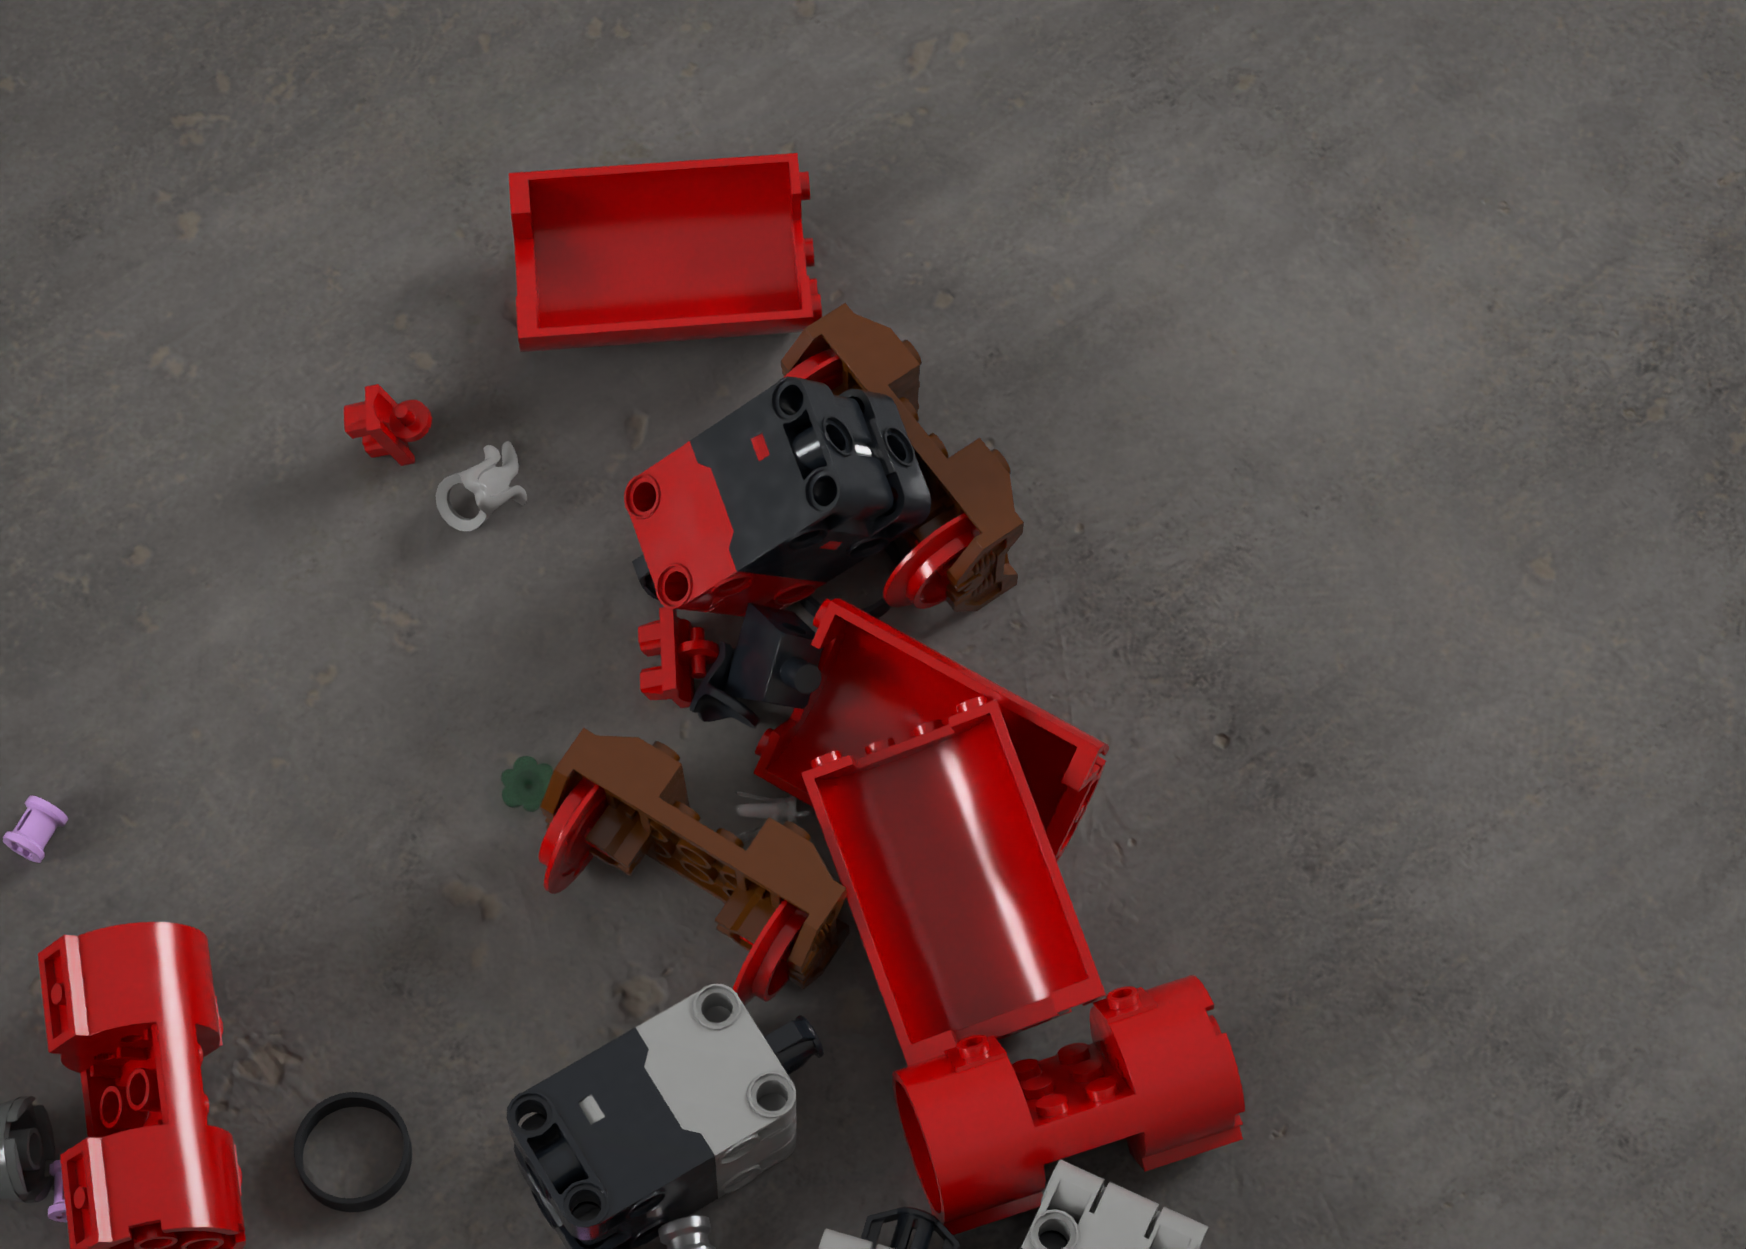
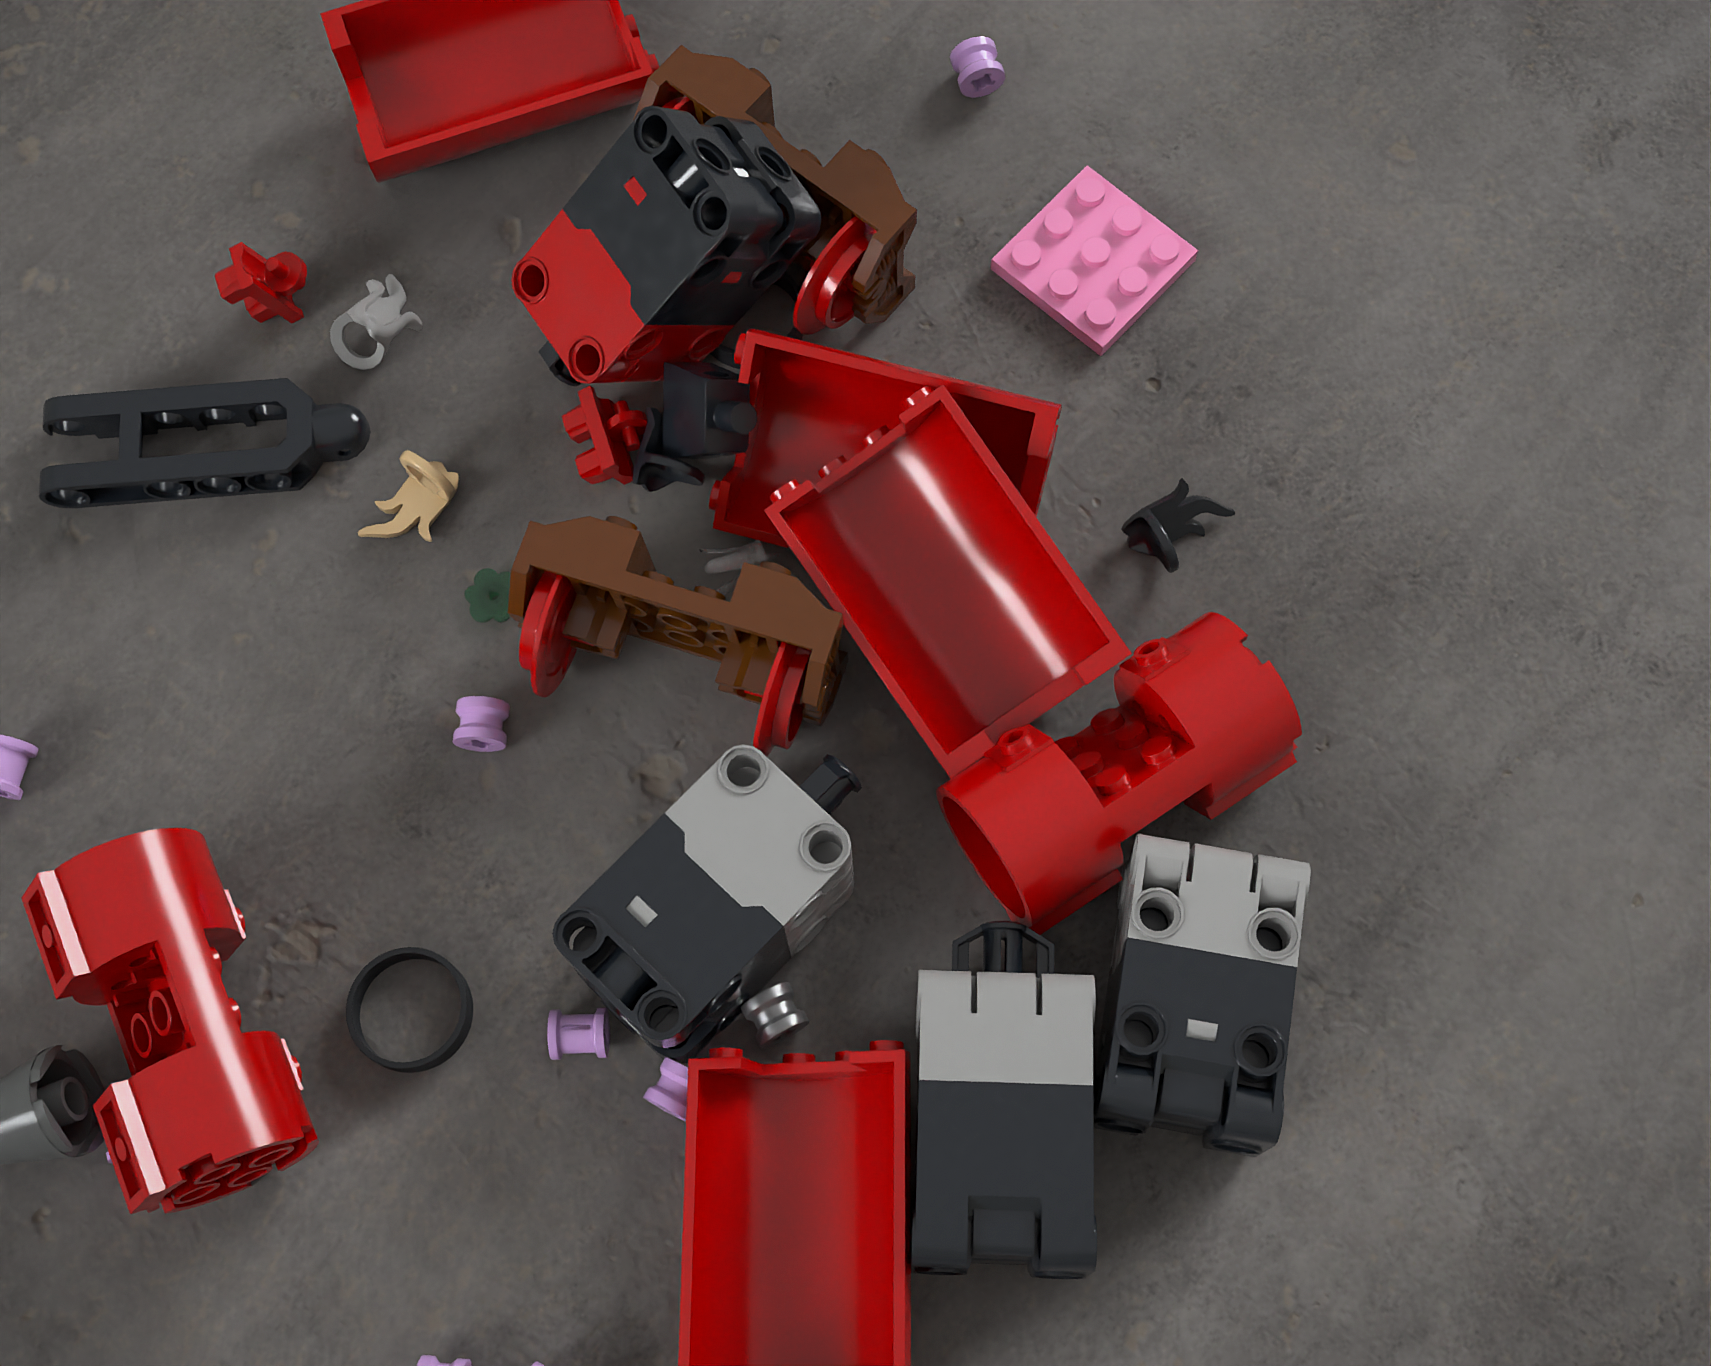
camera: 10 degrees left, 5 degrees up
(398, 585) = (313, 437): none -> black piece
(481, 672) = (418, 500): none -> tan piece
(486, 903) = (481, 723): none -> lavender wheel
(502, 1214) = (578, 1033): none -> lavender bush
(1139, 377) = (977, 67): none -> lavender wheel
(1193, 879) = (1167, 520): none -> black piece
(1199, 602) = (1094, 260): none -> bright pink plate

